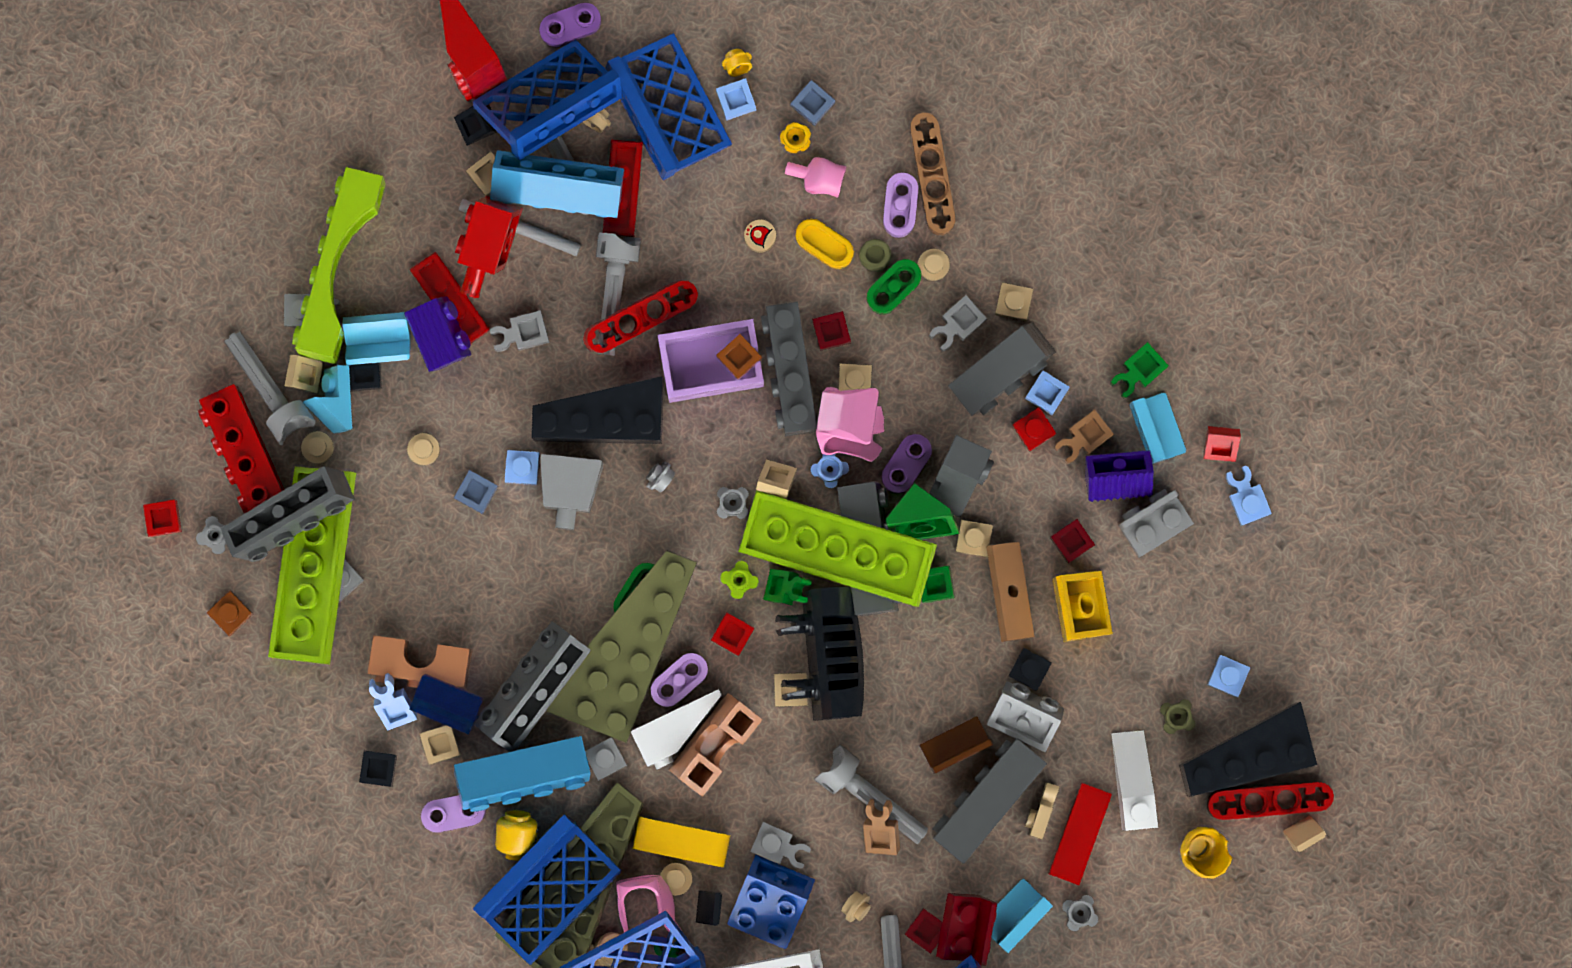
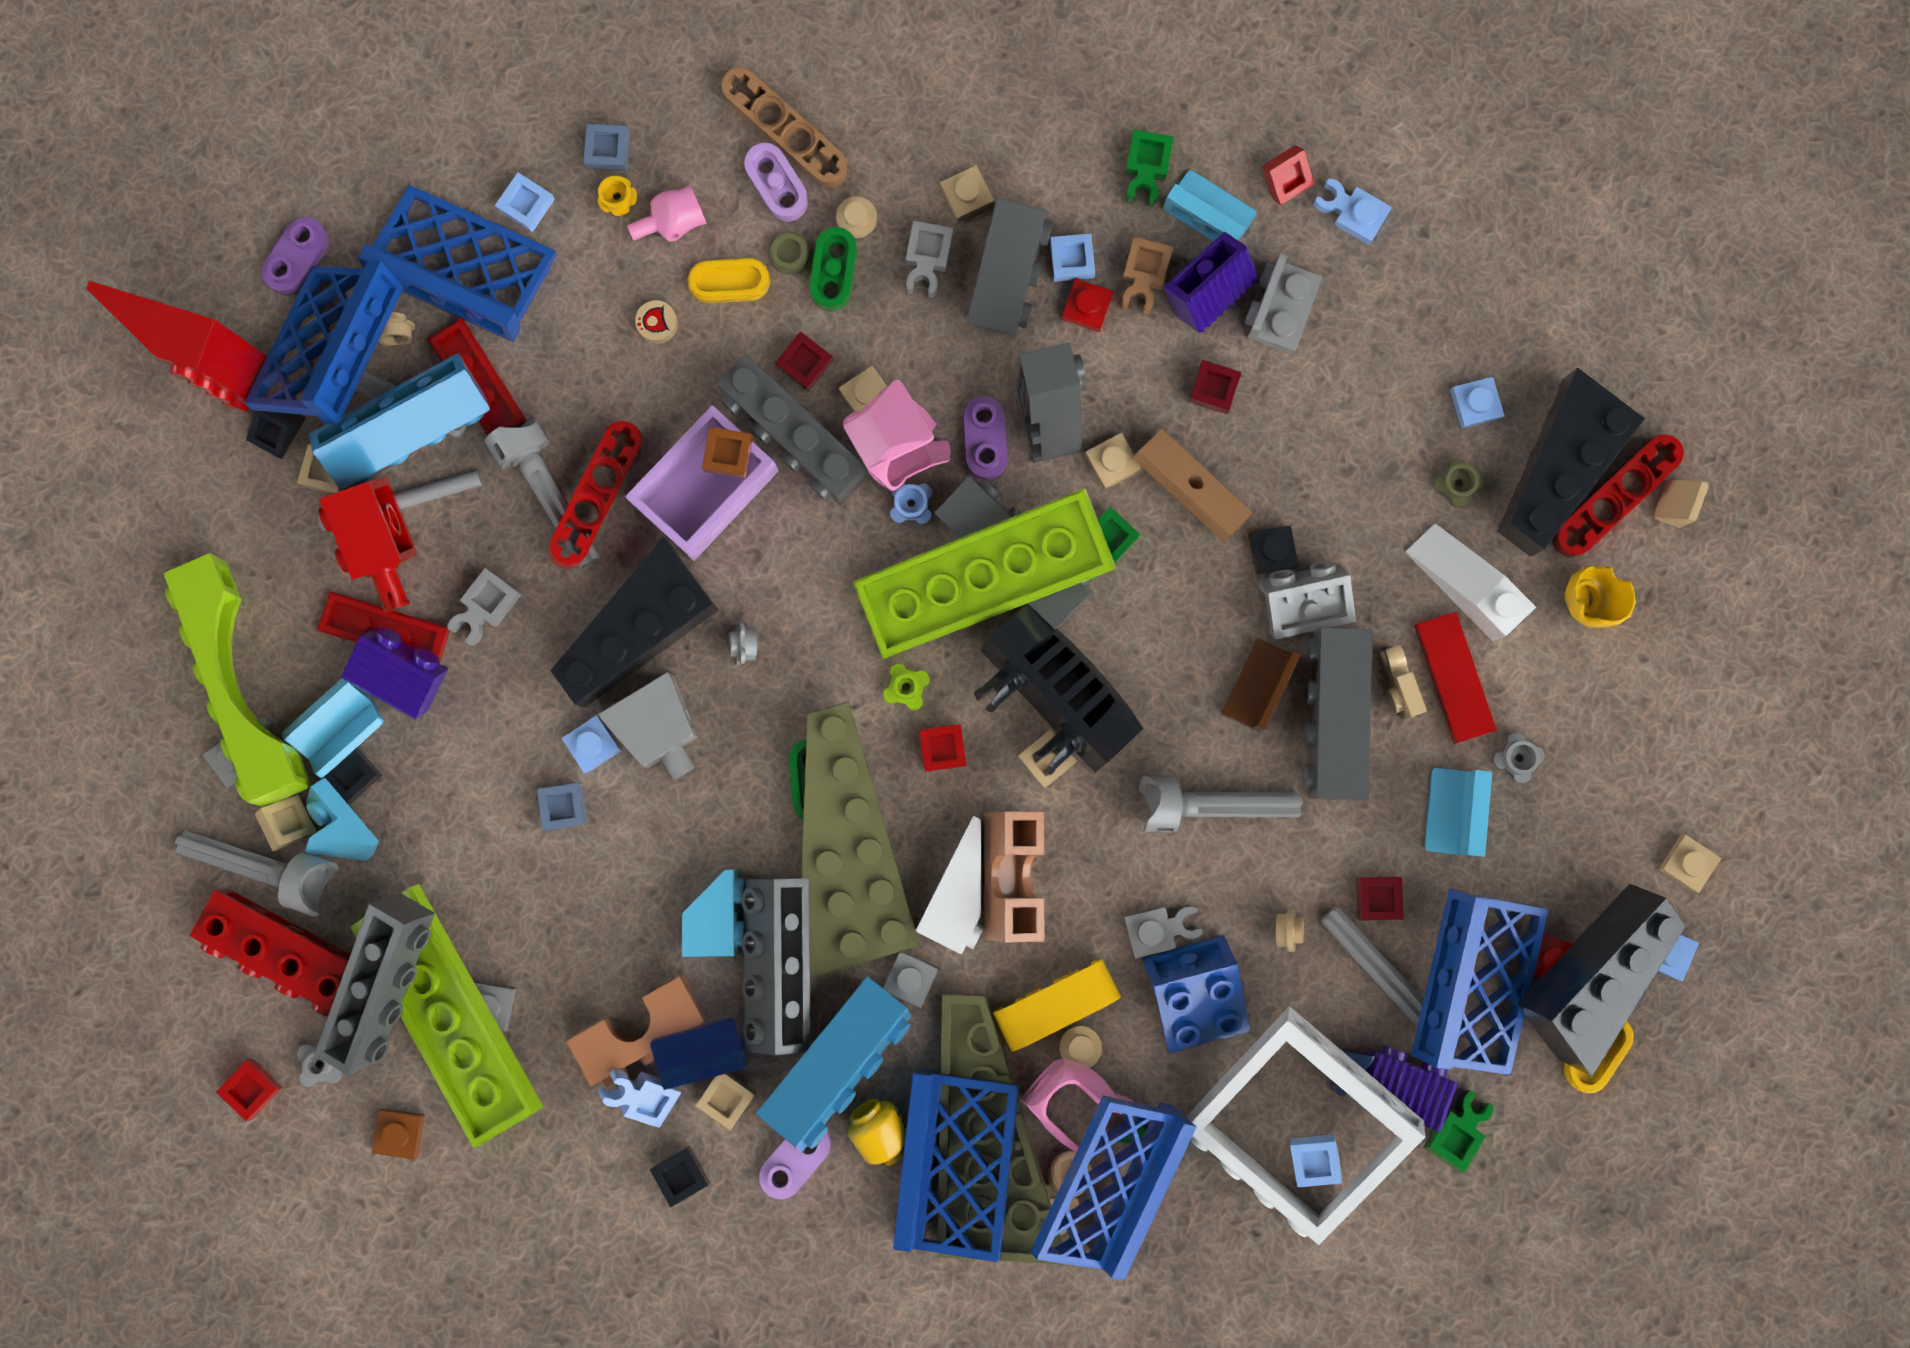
camera: 35 degrees left, 0 degrees up
(317, 447) = (359, 888): tan plate -> none
(423, 449) = (473, 804): tan plate -> none
(515, 629) = (712, 921): none -> medium azure slope
(679, 680) = (924, 838): lavender plate -> none
(709, 907) = (1138, 1050): black slope -> none
(735, 58) = (494, 160): yellow plate -> none
(739, 509) = (826, 610): light grey plate -> none
(776, 479) = (864, 554): tan plate -> none
(785, 587) = (960, 657): green plate -> none
(880, 833) = (1253, 833): medium nougat plate -> none
(922, 516) = (1046, 471): green slope -> none
(967, 928) = (1421, 863): dark red bracket -> none
(1082, 605) = (1274, 445): yellow slope -> none

